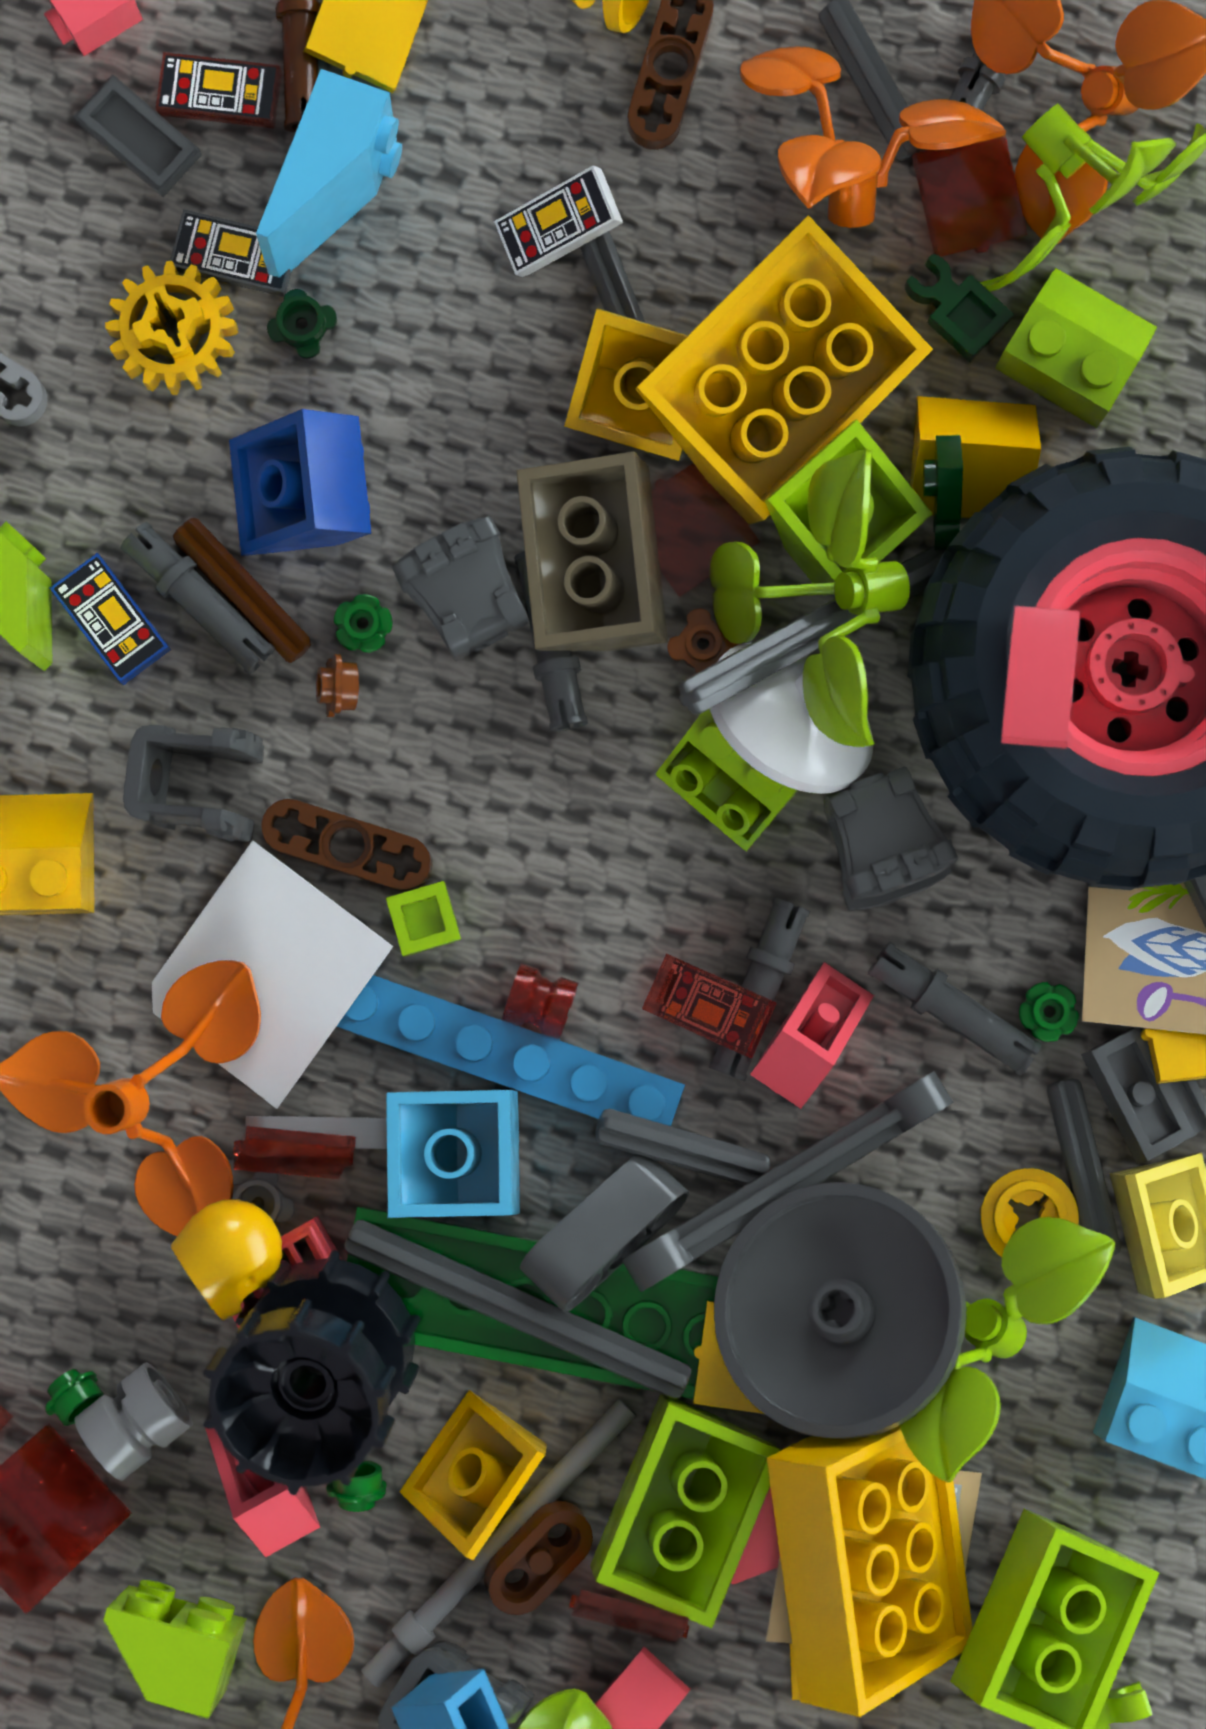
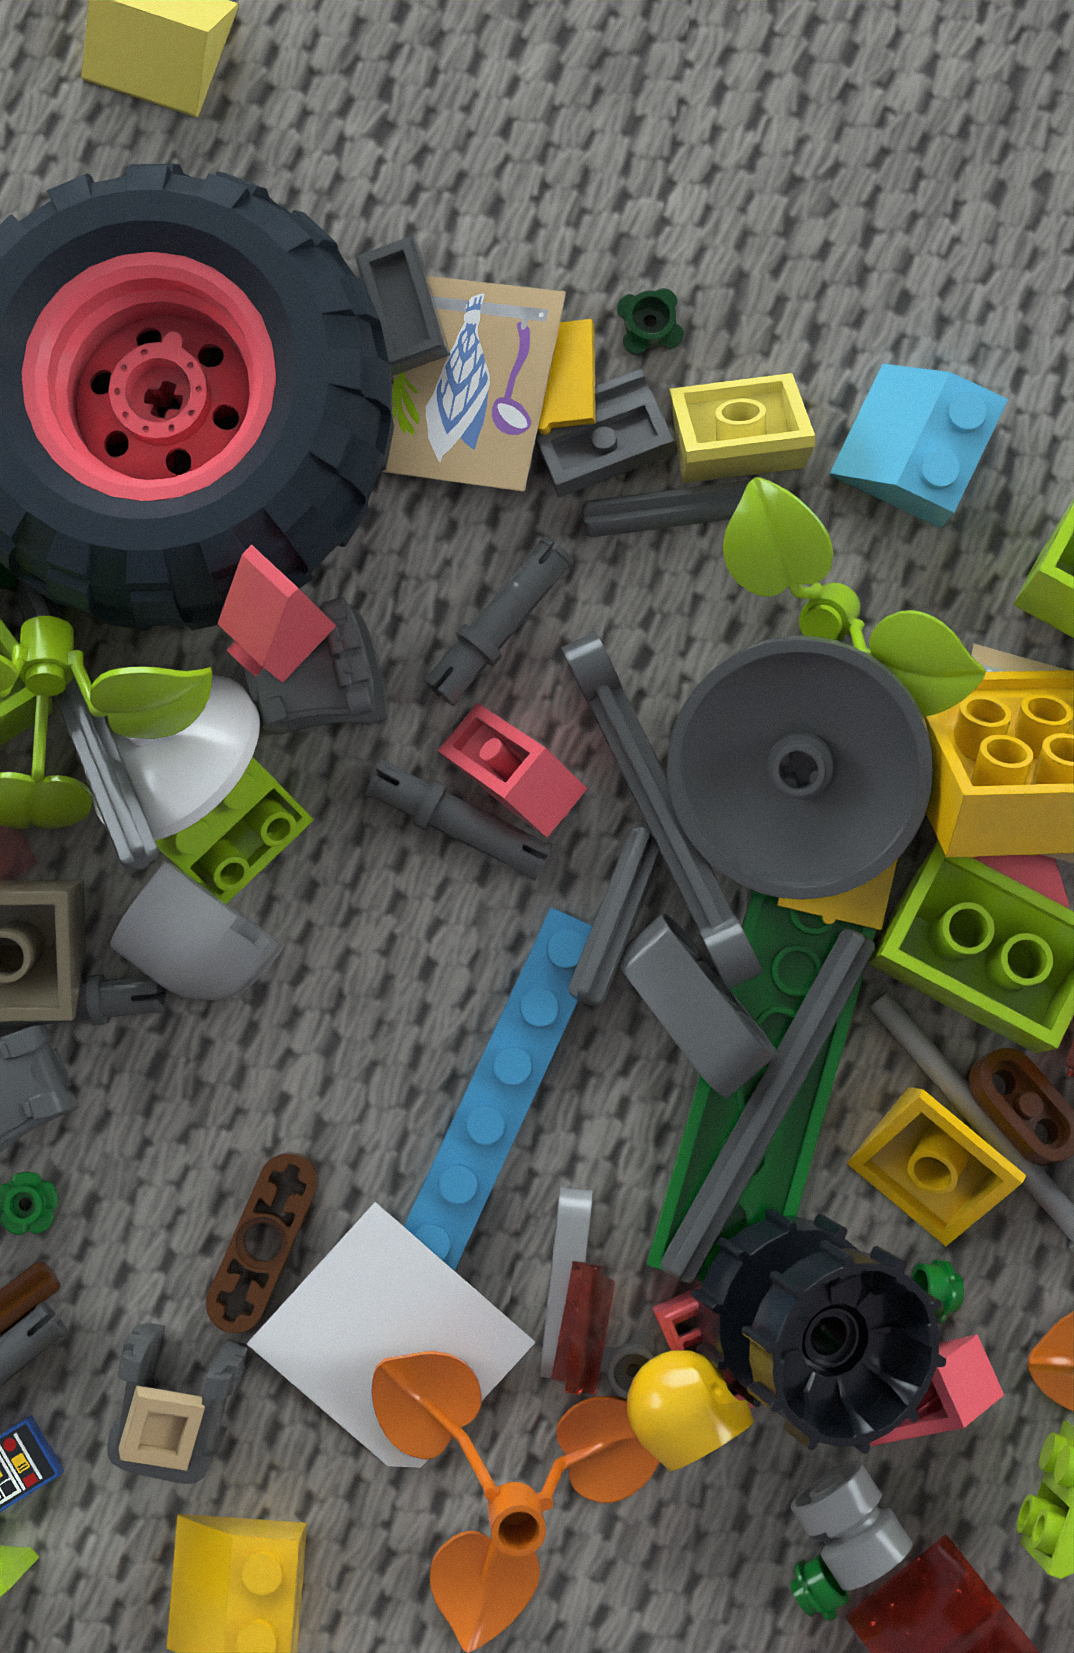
camera: 85 degrees left, 0 degrees up
(172, 772) = (161, 1428): none -> tan plate
(337, 685) = (90, 1236): dark orange plate -> none
(423, 919) = (349, 1166): lime plate -> none
(453, 1153) = (600, 1158): medium azure slope -> none
(539, 1001) = (449, 1051): clear red wheel -> none
(620, 751) = (192, 939): none -> light grey brick
(685, 645) = (71, 845): dark orange plate -> none
(709, 1006) = (471, 873): clear red tile -> none
(926, 794) = (270, 619): none -> coral slope
(1025, 1187) = (689, 568): yellow gear -> none
(1032, 1011) = (511, 542): green plate -> none
(1040, 677) = (156, 481): coral slope -> none

